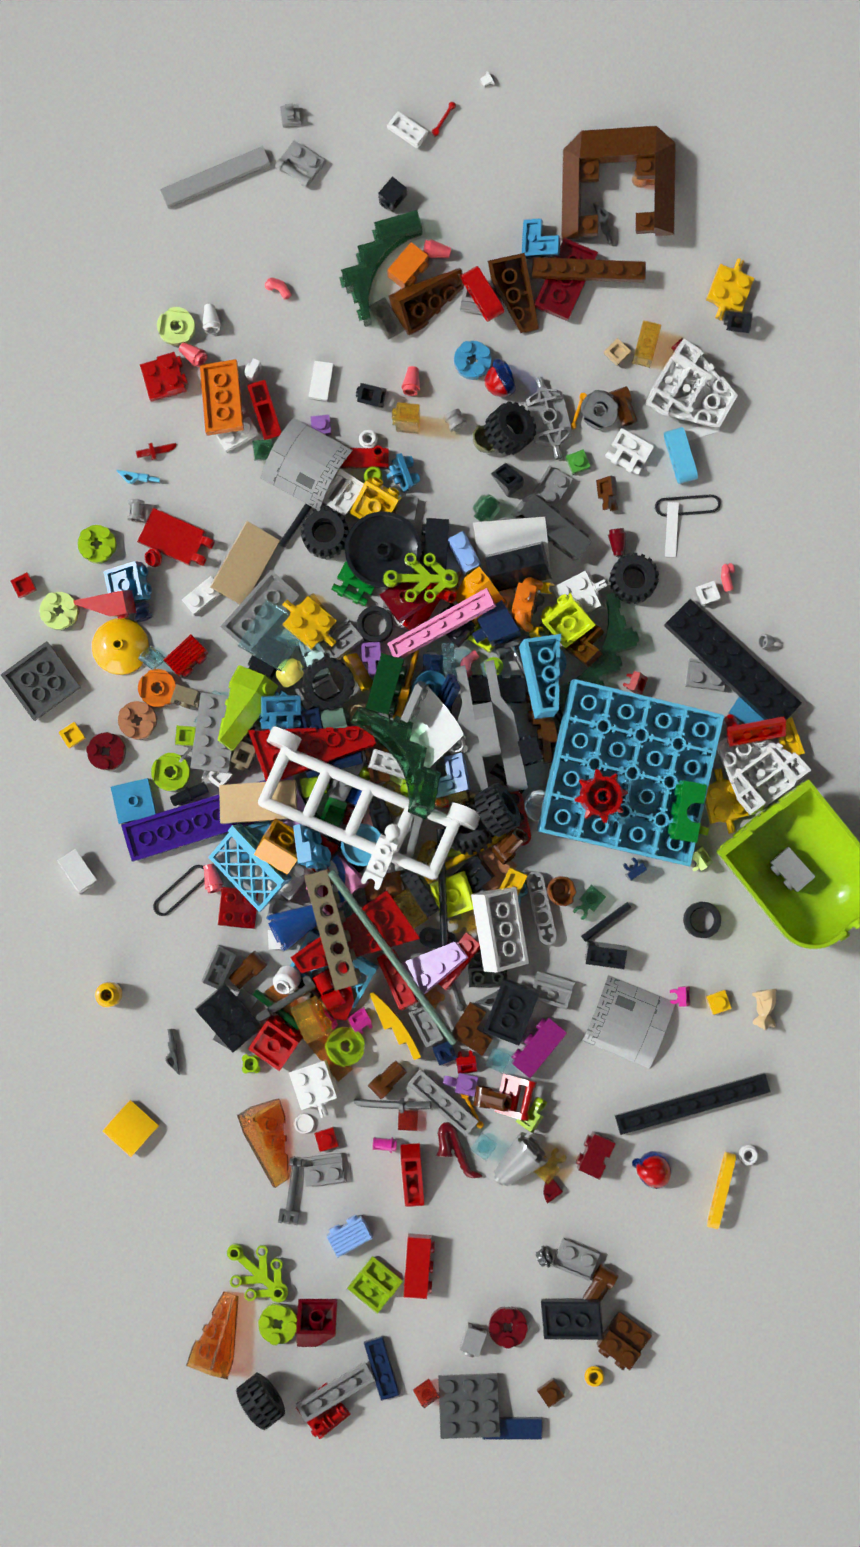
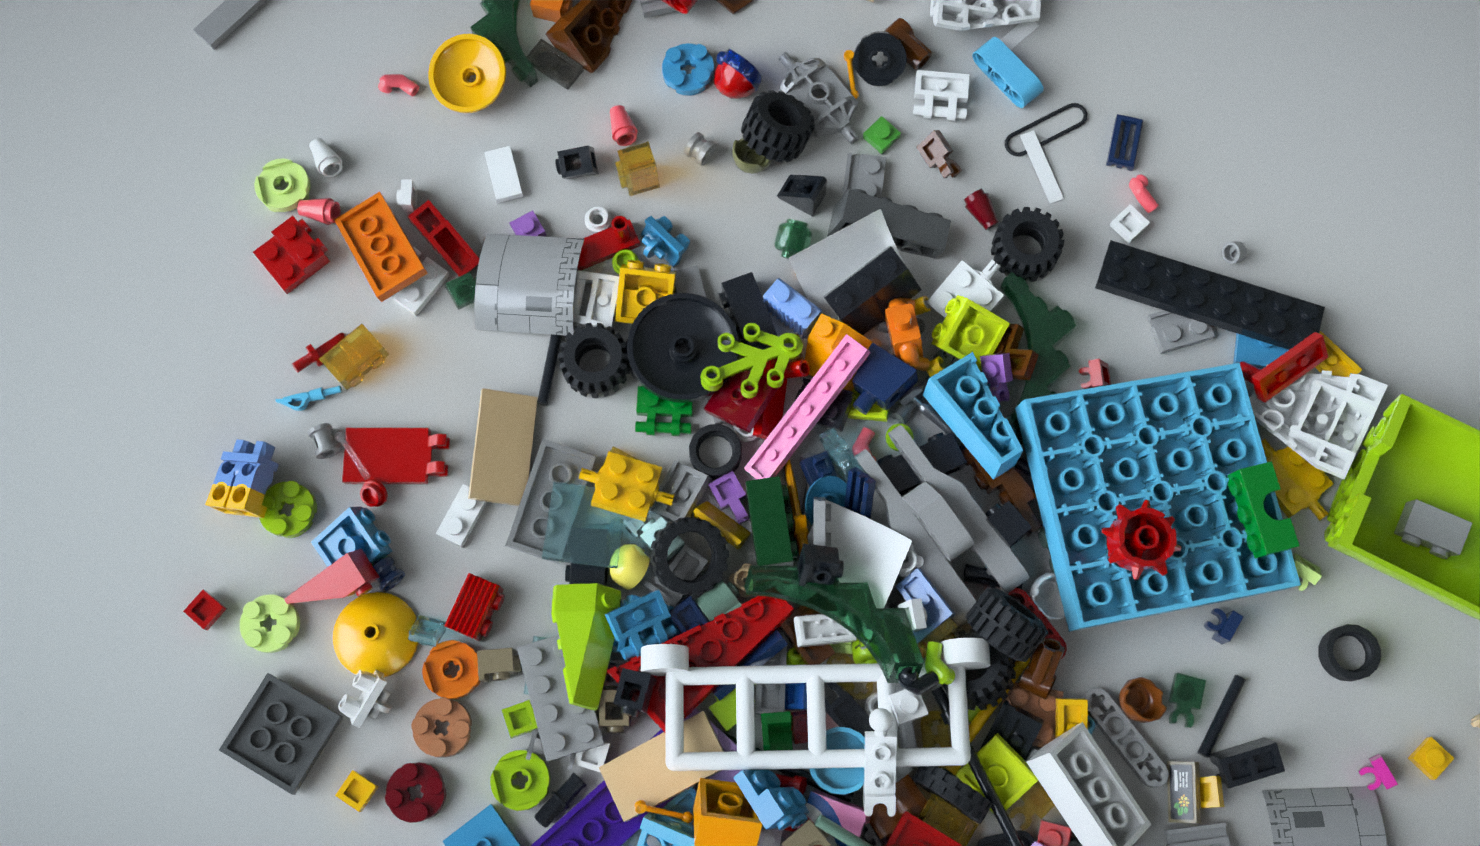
camera: 30 degrees left, 10 degrees down
(77, 514) = (243, 479): none -> medium blue hips
(101, 685) = (359, 708): none -> white hips
(147, 512) = (341, 437): none -> clear hinge
(176, 464) = (354, 357): none -> clear yellow brick
(234, 819) = (641, 807): none -> light orange hinge
(255, 745) = (630, 682): none -> black brick
(315, 296) = (455, 64): none -> yellow dish
(401, 724) = (819, 565): none -> black brick
(414, 830) = (907, 706): none -> white plate
(423, 820) = (915, 684): none -> black arm
(441, 815) = (935, 664): none -> lime arm
(445, 779) = (916, 614): none -> white plate
(559, 954) = (1183, 792): none -> tile
(572, 653) = (997, 372): none -> medium lavender plate
(572, 960) = (1211, 792): none -> yellow plate
(724, 549) = (1120, 162): none -> dark blue tile

